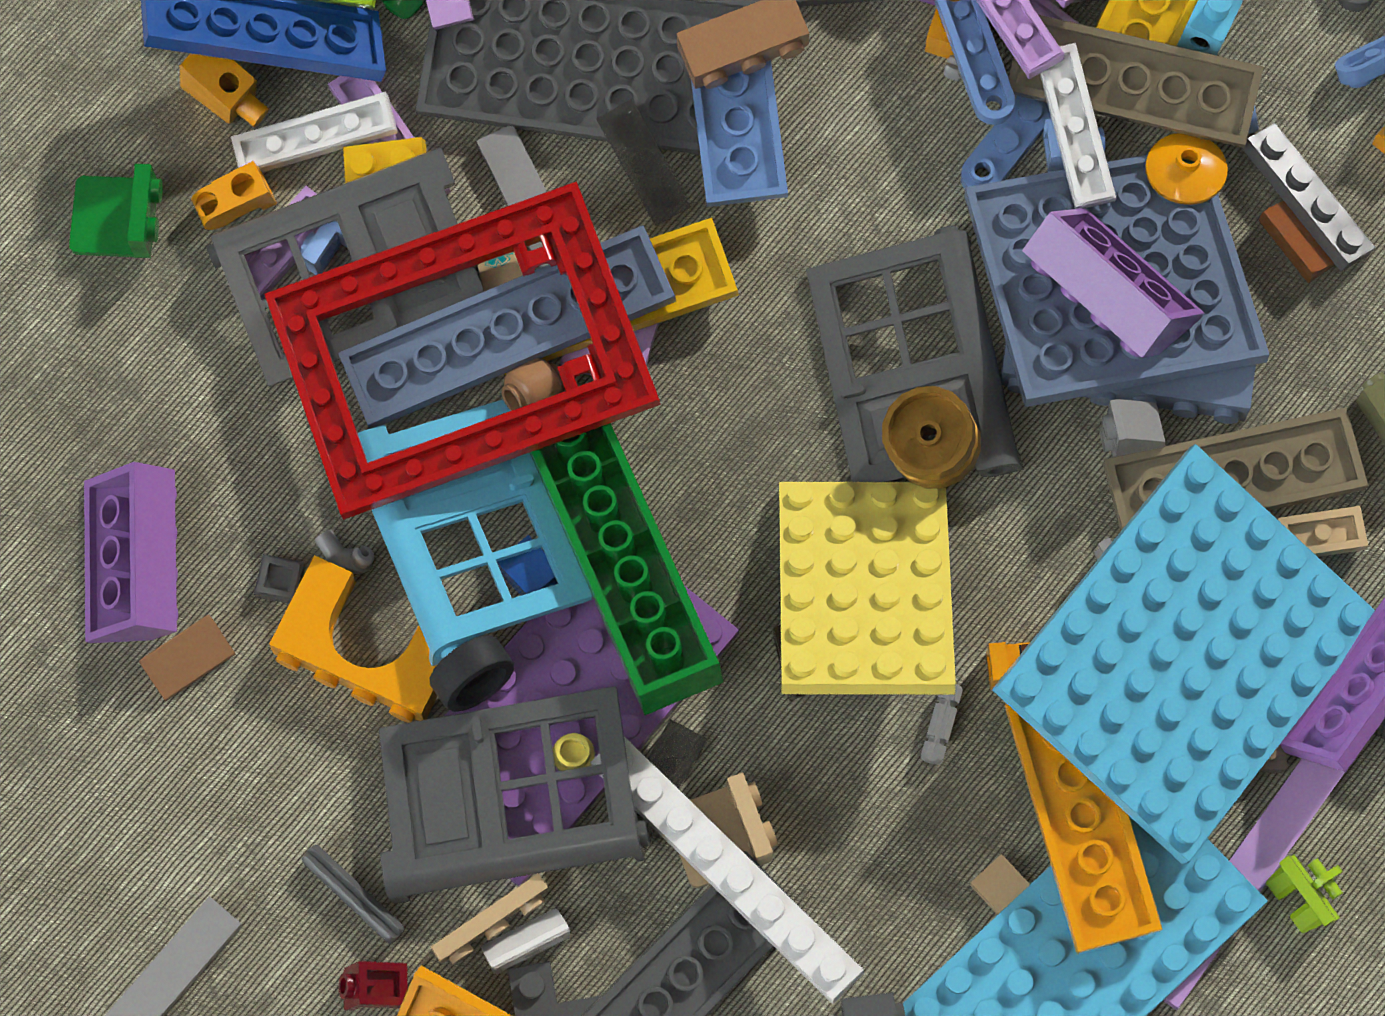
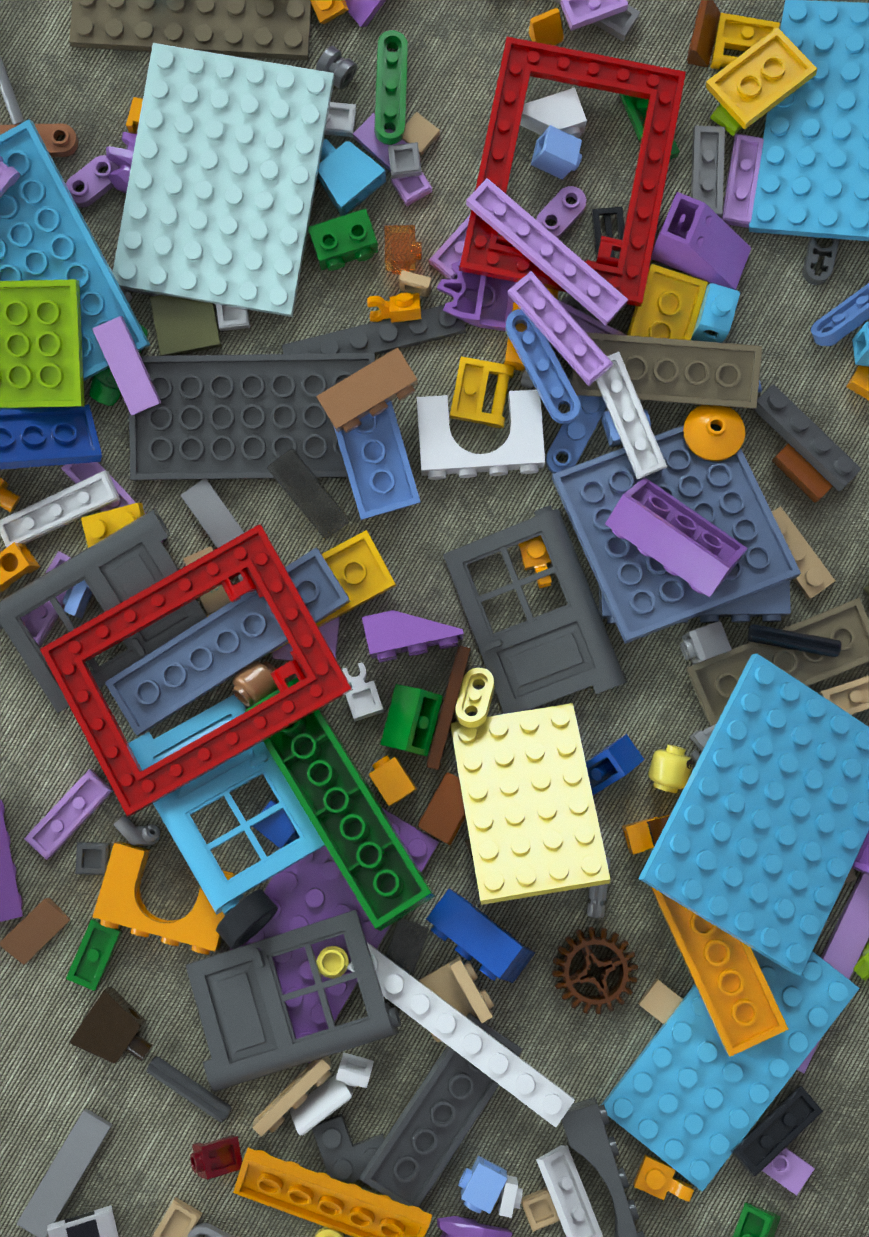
camera: 10 degrees left, 10 degrees up
(258, 518) = (68, 814): none -> lavender tile
(259, 699) = (93, 955): none -> green plate
(266, 797) = (112, 1029): none -> dark brown torso
(577, 904) = (354, 1070): none -> white plate
(670, 430) = (364, 697): none -> white plate
(691, 538) = (392, 780): none -> light orange brick
(729, 465) = (411, 719): none -> green brick
(742, 354) = (400, 632): none -> medium lavender slope
(753, 590) = (445, 810): none -> dark orange slope
(774, 757) = (479, 937): none -> blue wedge
(780, 461) = (448, 708): none -> reddish brown tile
(817, 451) = (473, 699): none -> light yellow plate
(877, 71) = (471, 390): none -> yellow plate
(915, 418) = (539, 678): pearl gold wheel -> none
(925, 290) = (536, 556): none -> light orange plate
(926, 156) = (444, 456): none -> white arch
(937, 821) = (581, 975): none -> reddish brown gear
(984, 565) = (612, 763): none -> blue slope
(1056, 580) = (670, 769): none -> light yellow head
(1250, 445) = (794, 640): none -> black axle
(1286, 366) = (814, 574): none -> tan plate

